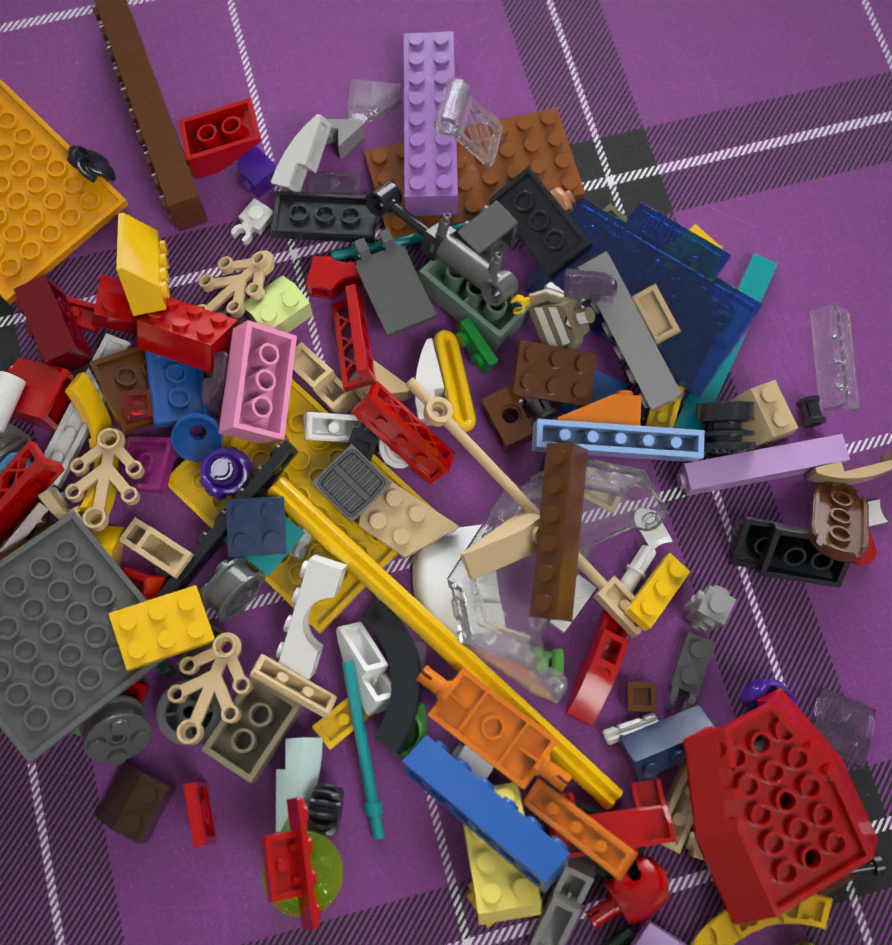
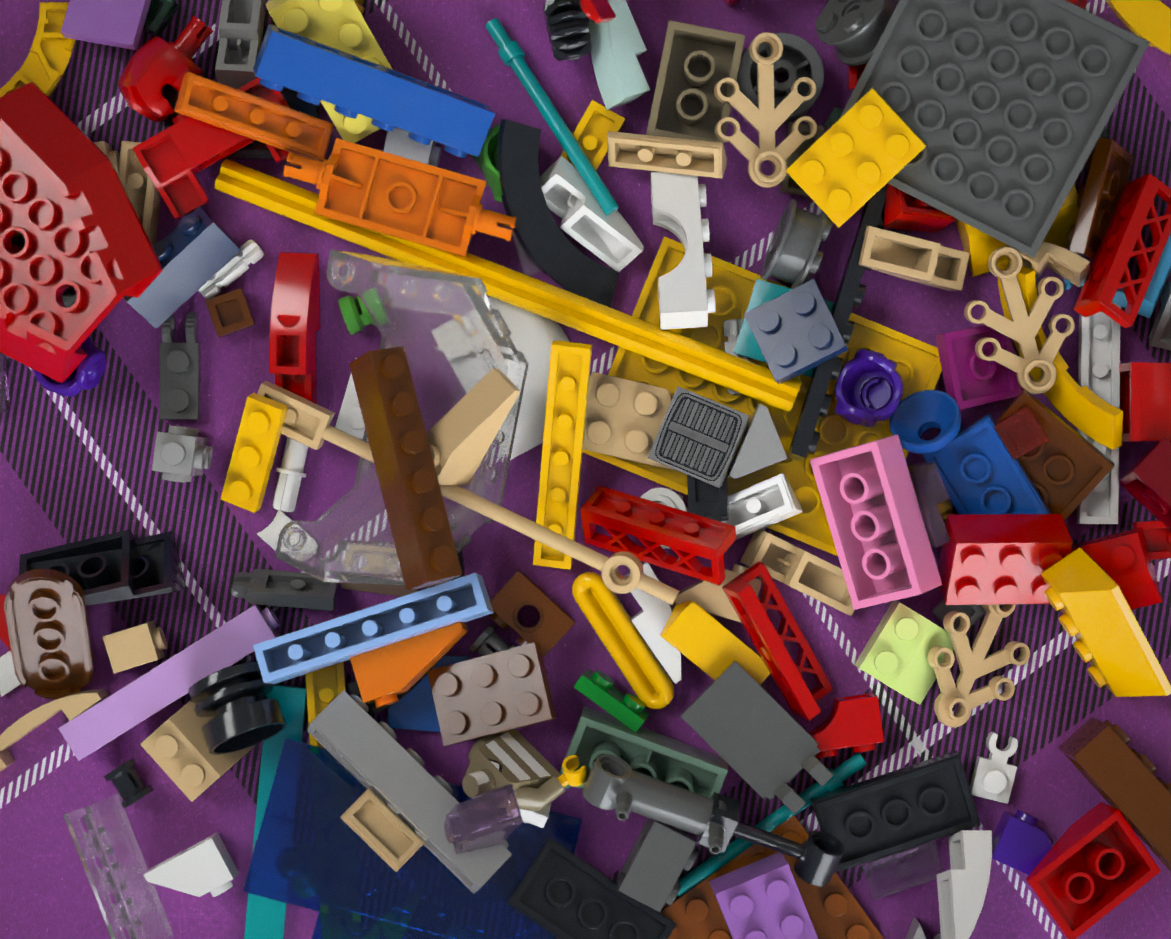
camera: 160 degrees right, 15 degrees up
(313, 462) = (759, 445): none -> light grey slope
(398, 353) = (710, 643): none -> yellow slope
(444, 514) = (562, 447): none -> yellow plate
(676, 498) = (285, 589): none -> dark grey hinge
(780, 495) = (135, 646): none -> tan brick
(783, 343) = (197, 869): none -> white slope

